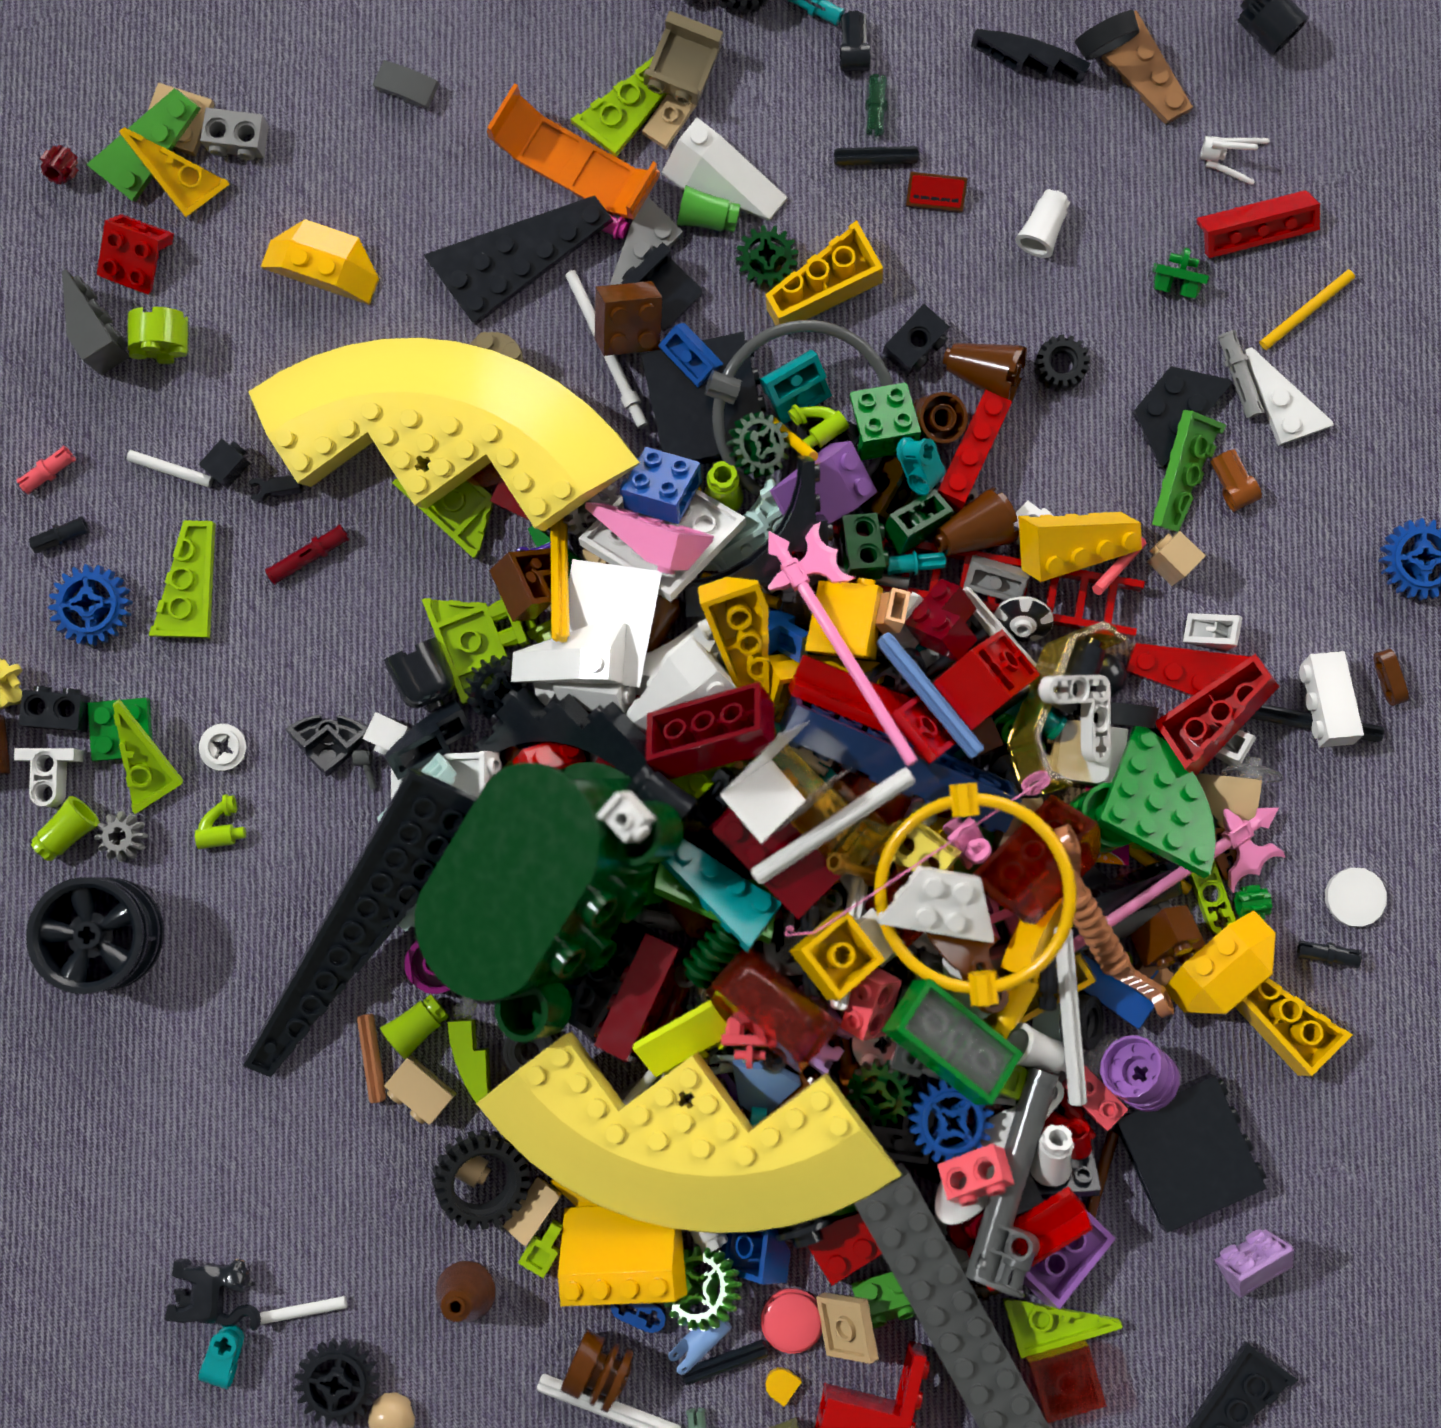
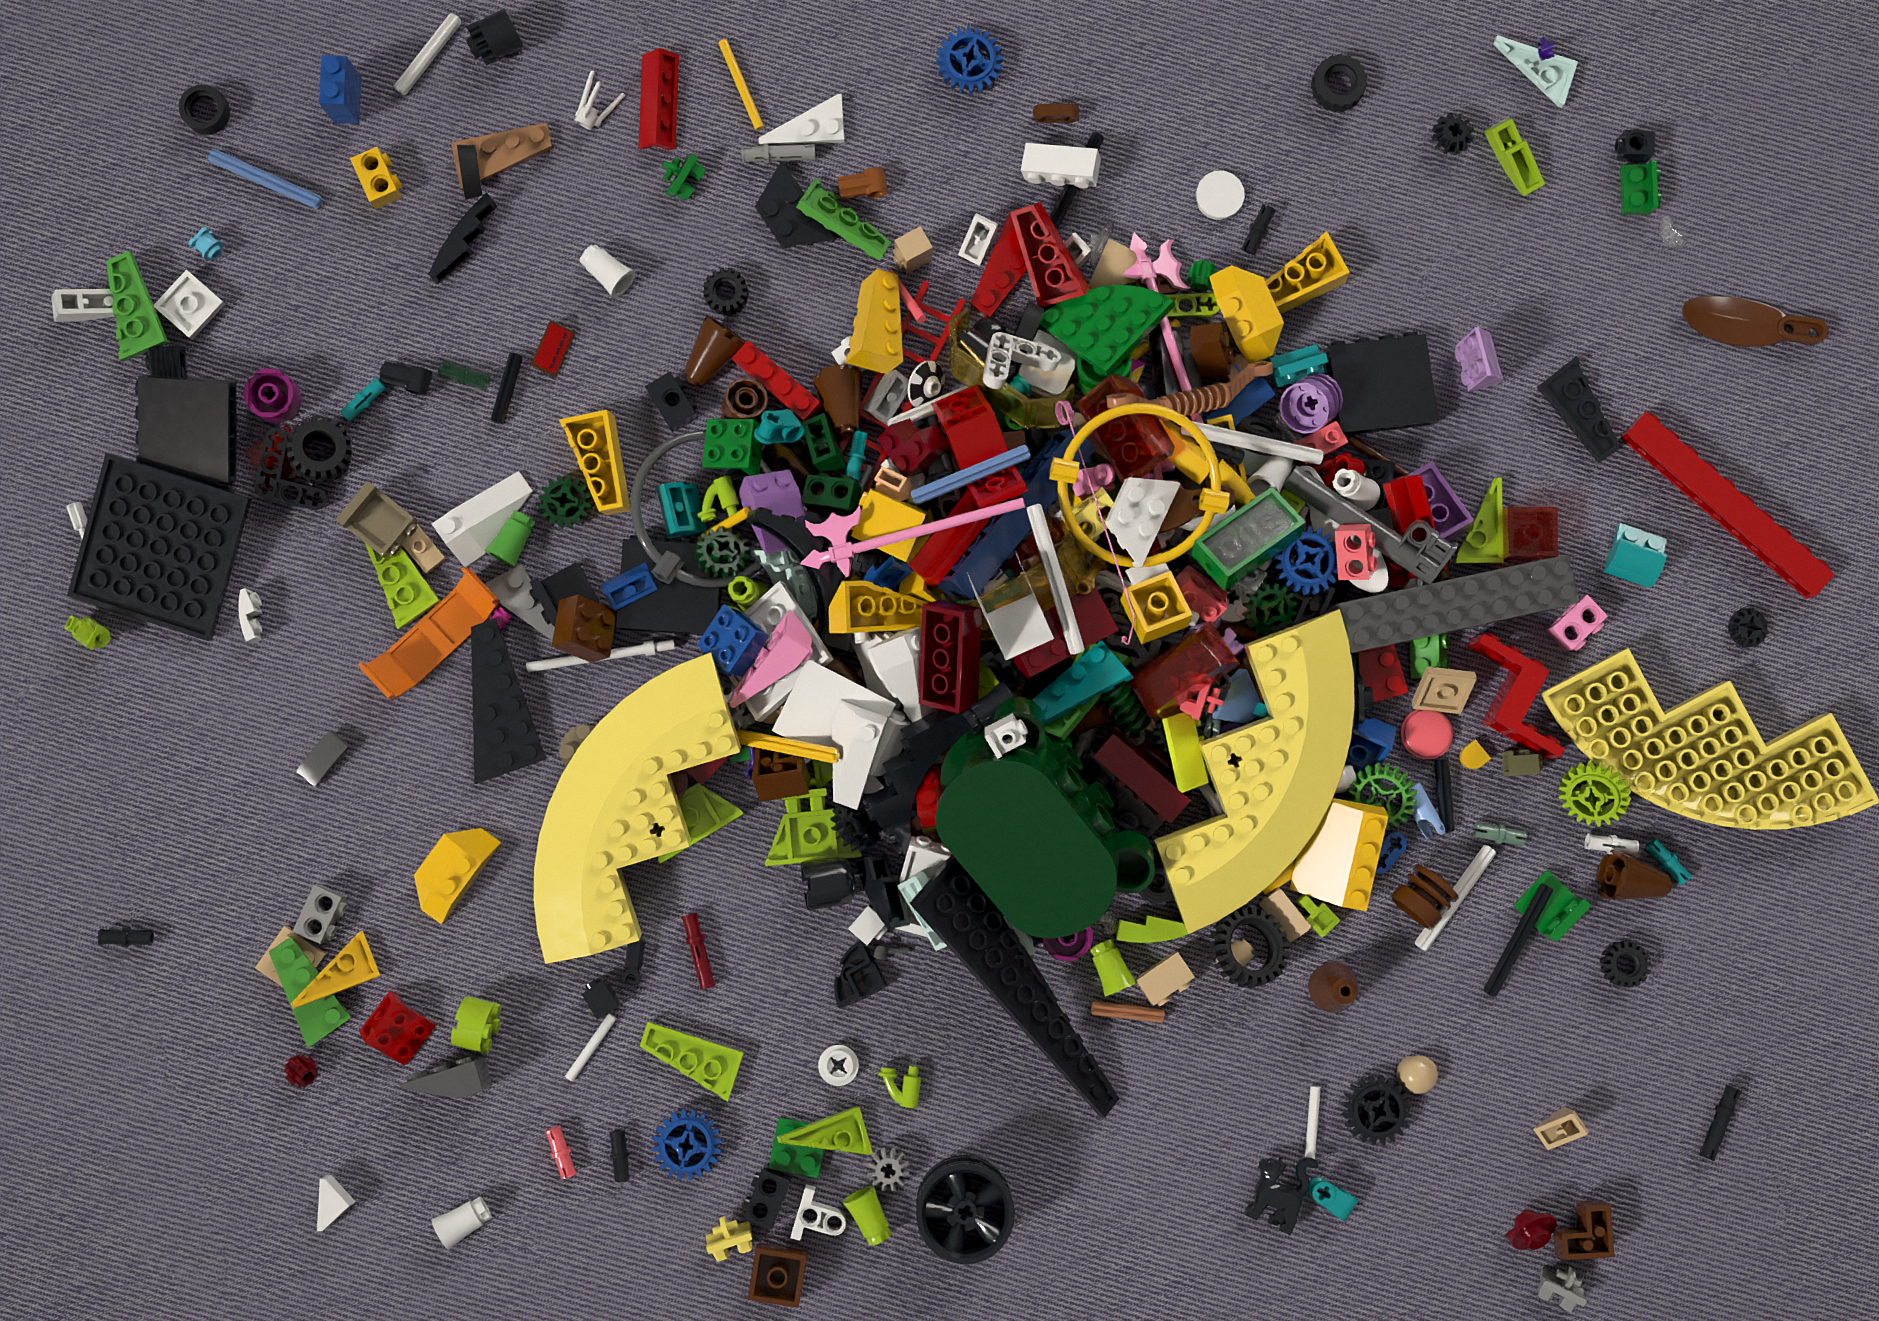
camera: 85 degrees left, 0 degrees up
(1181, 1044) = (1297, 364): none -> teal brick

